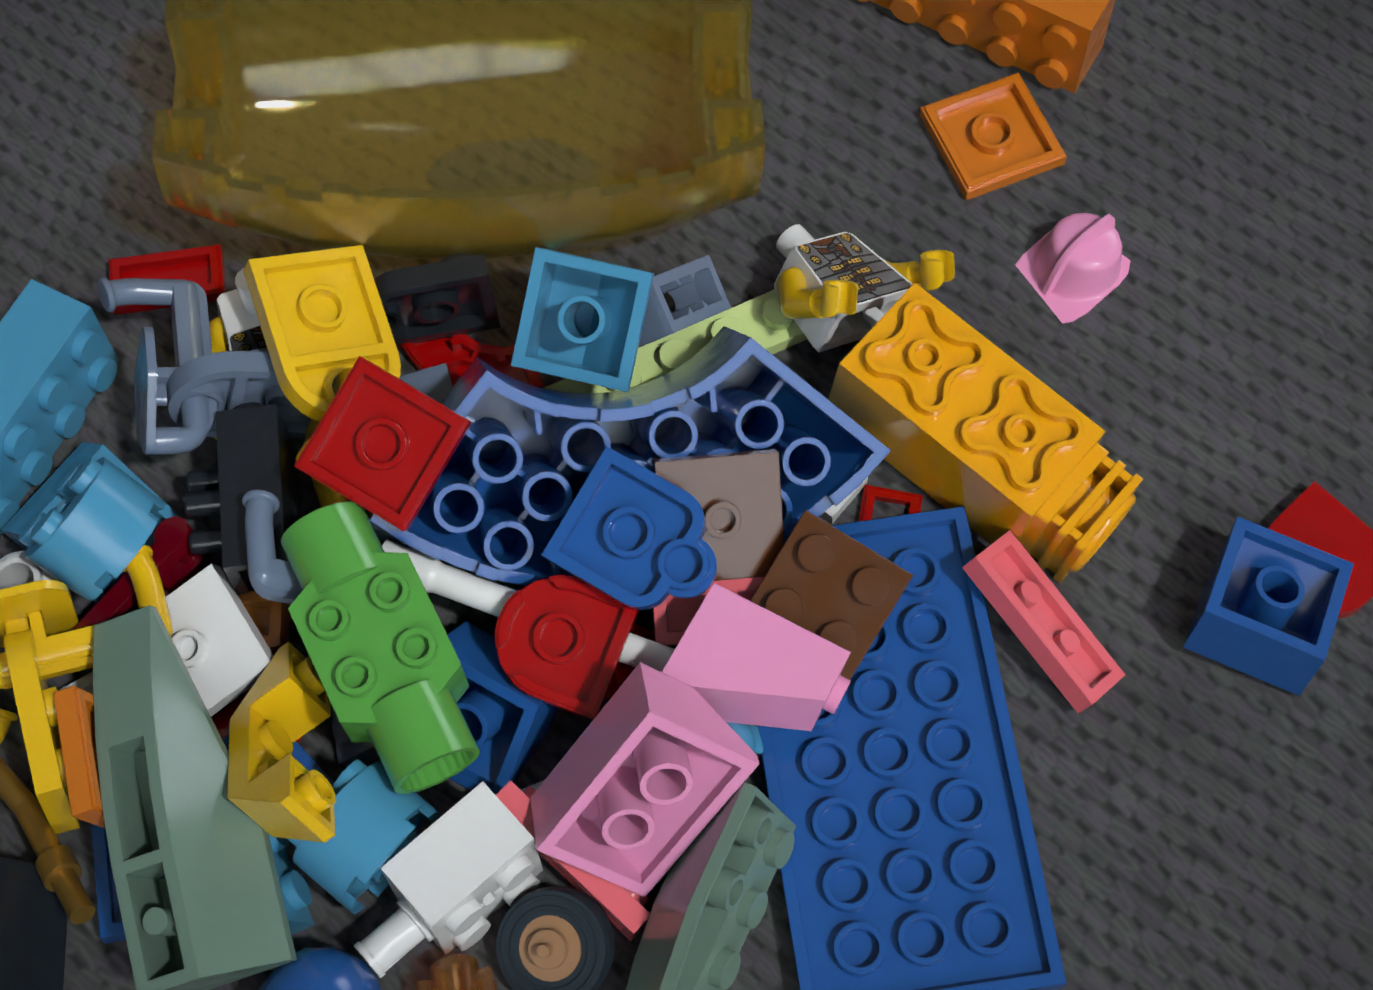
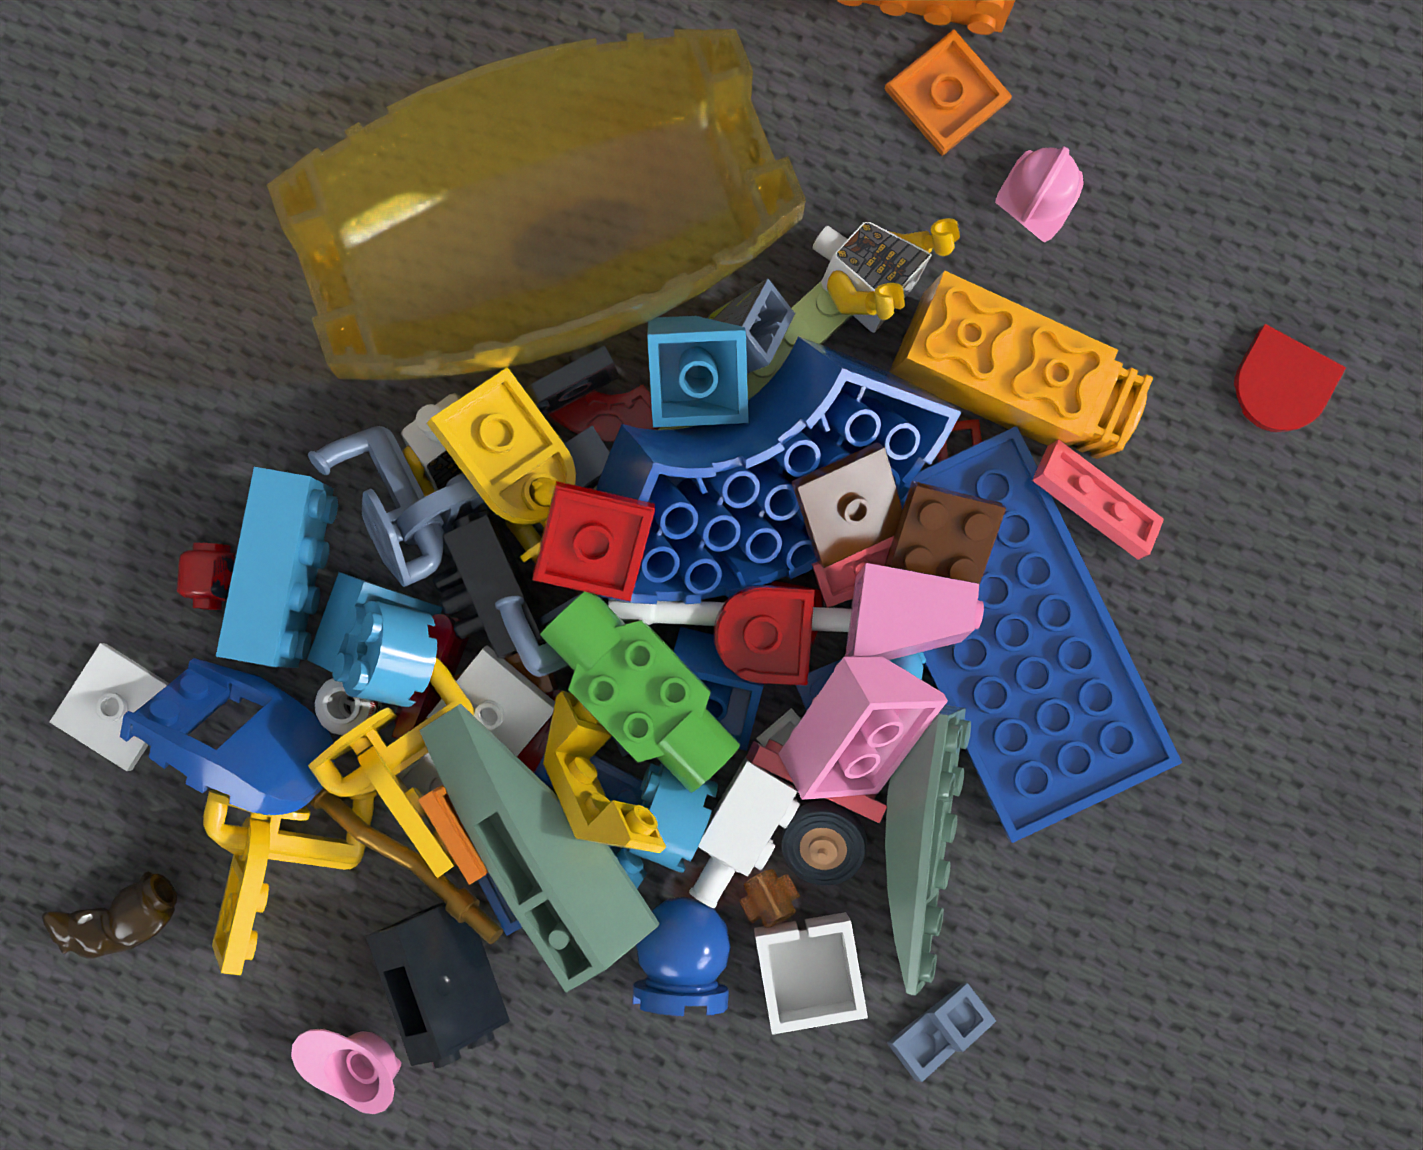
camera: 15 degrees left, 20 degrees up
(197, 264) = (343, 412): red tile -> none
(634, 536) = (798, 548): blue plate -> none
(1269, 606) = (1259, 439): blue slope -> none

